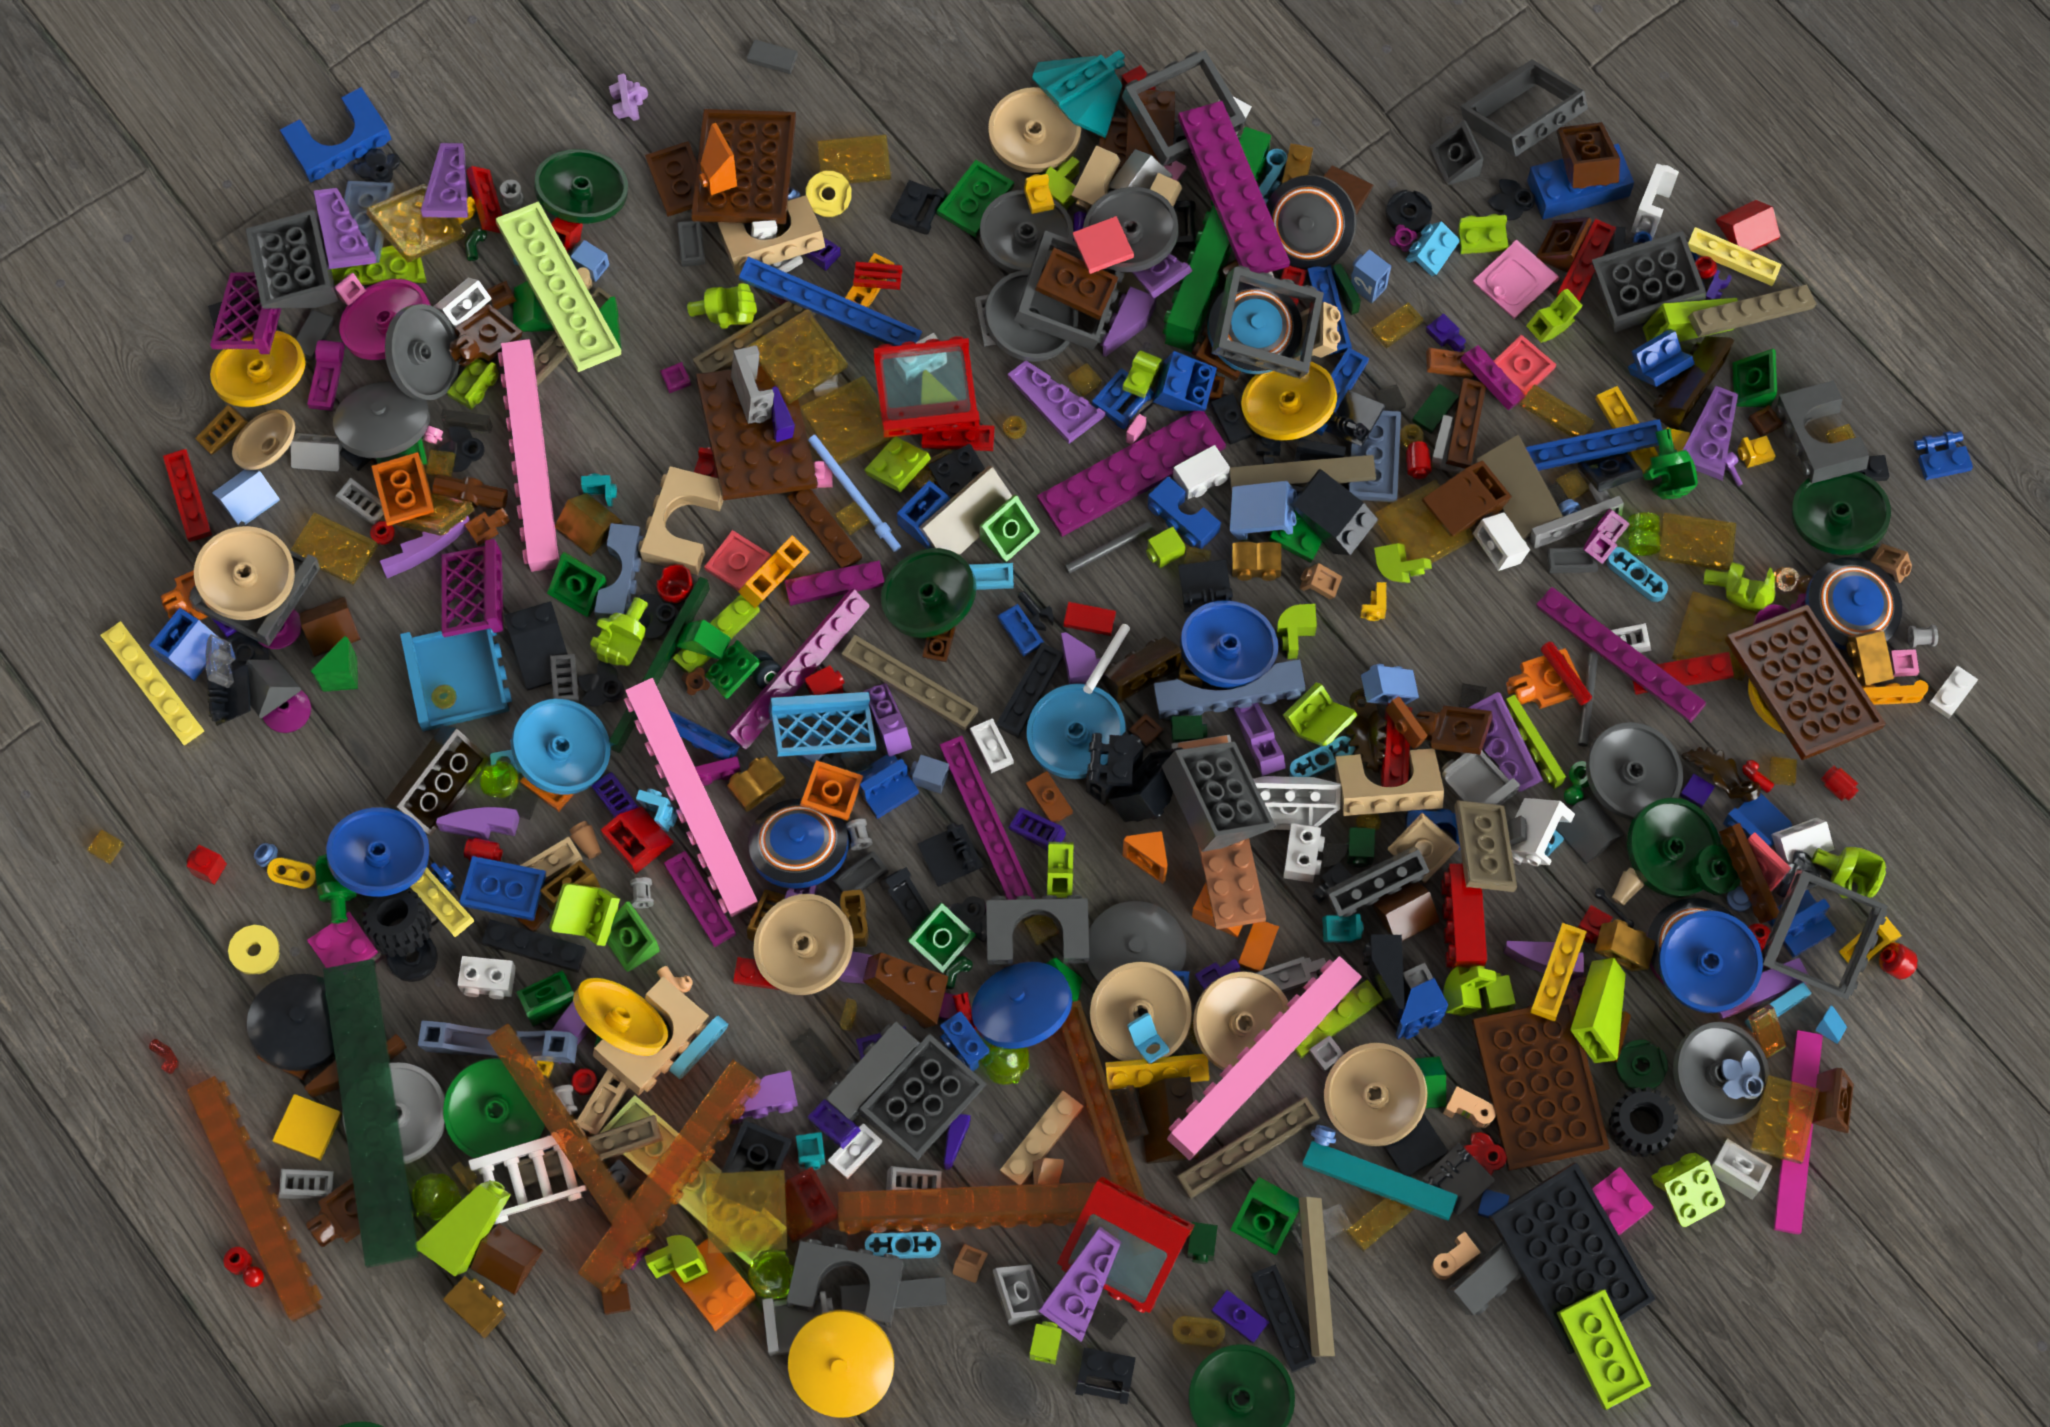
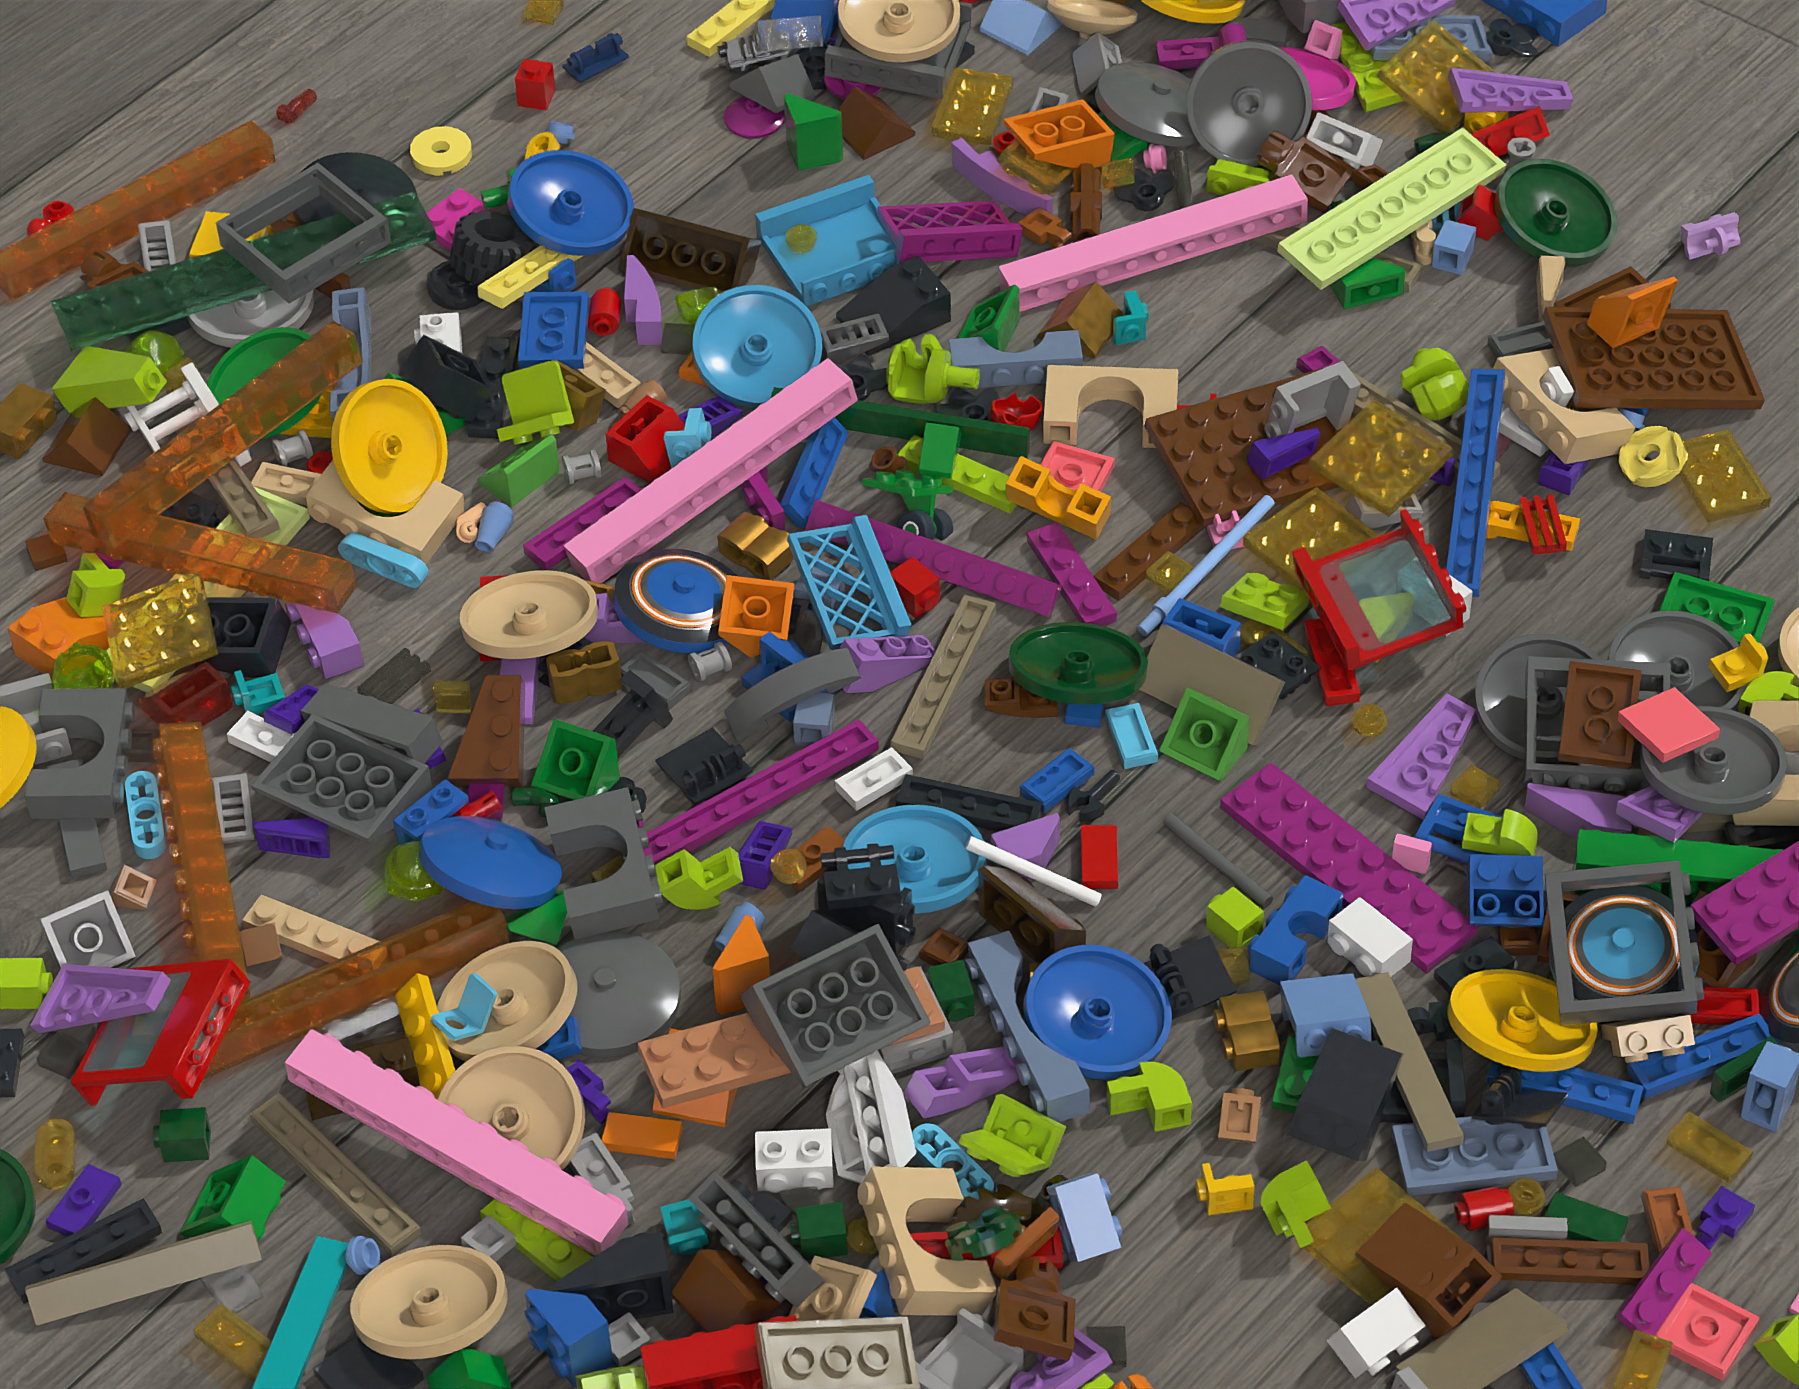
camera: 80 degrees right, 20 degrees down
(185, 815) = (590, 61): none -> dark blue hinge
(338, 1016) = (323, 264): none -> dark grey window
(539, 971) = (447, 378): none -> black brick
(647, 212) = (1548, 281): none -> tan slope
(685, 964) = (494, 523): none -> medium blue cone
(913, 782) = (788, 687): none -> dark grey slope
(1056, 818) = (791, 873): none -> clear yellow plate
(1102, 854) = (735, 919): none -> medium blue cone
(1393, 743) = (983, 1235): none -> dark green plate

